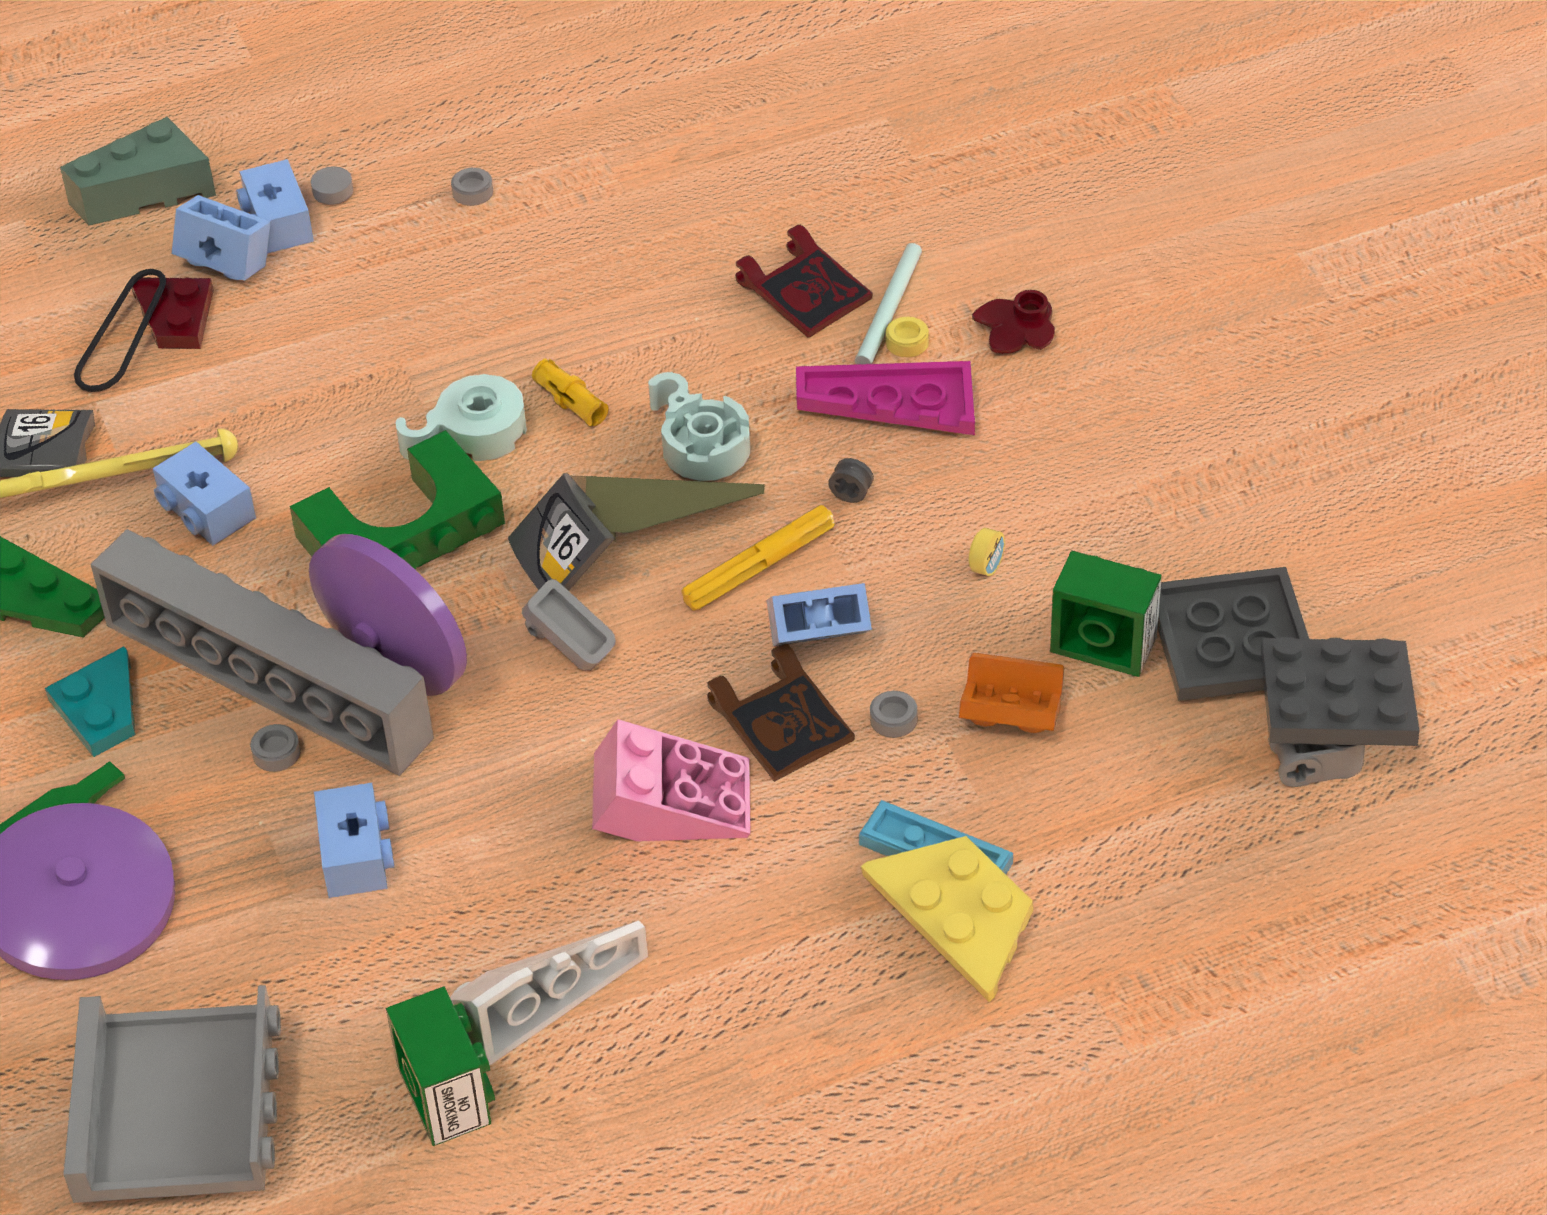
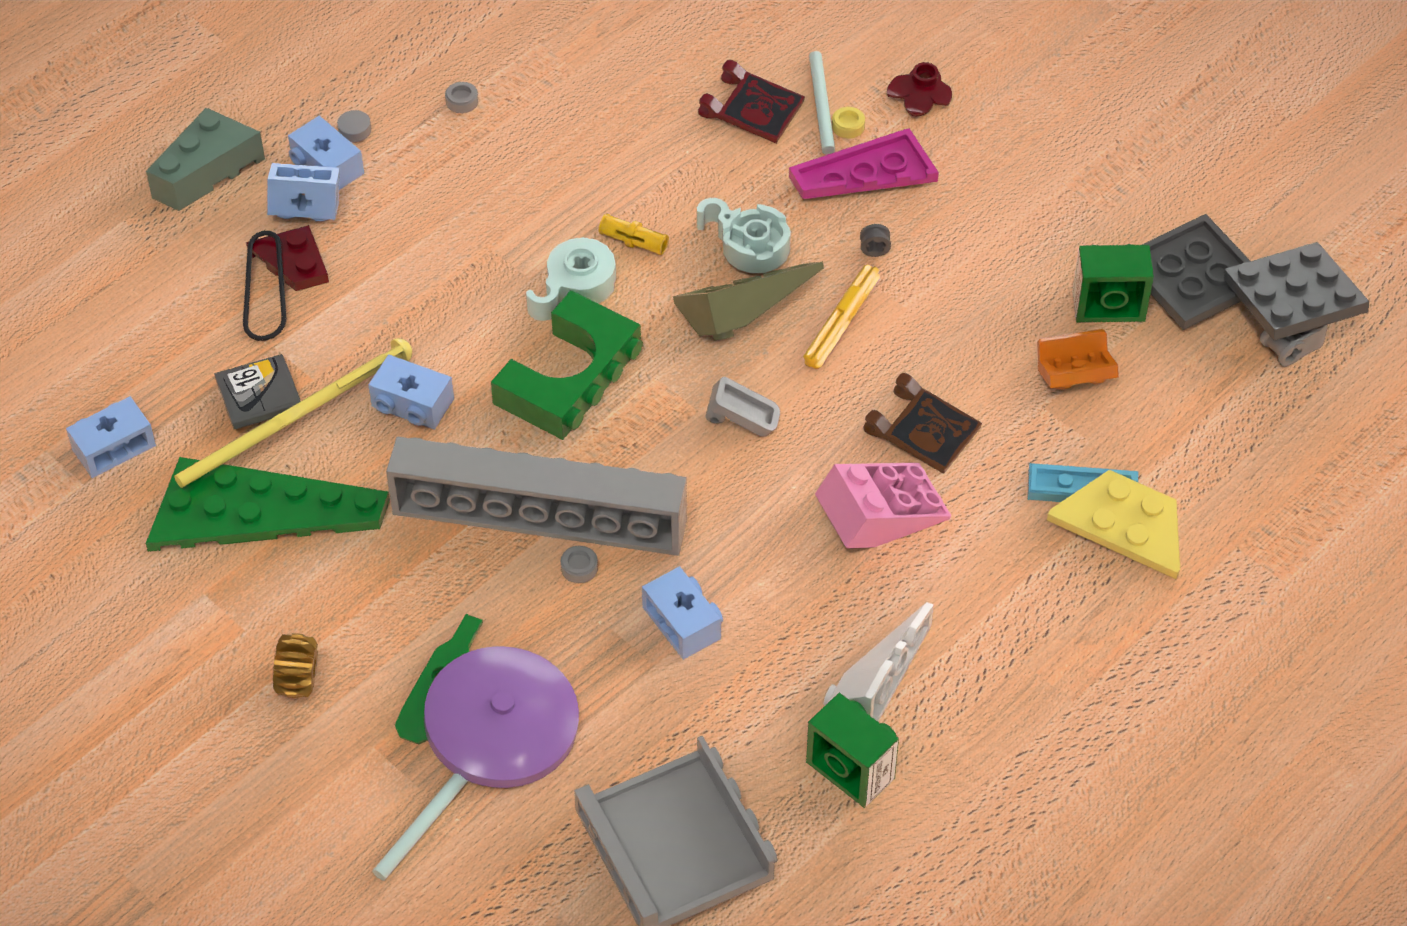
camera: 25 degrees left, 5 degrees up
(97, 702) = (425, 573): teal wing -> none
(387, 607) = (629, 432): medium lavender dish -> none
(560, 536) = (702, 344): dark grey slope -> none
(819, 614) = (916, 345): light blue brick -> none
(893, 714) = (999, 399): light grey tile -> none
(986, 551) = (998, 263): light yellow tile -> none

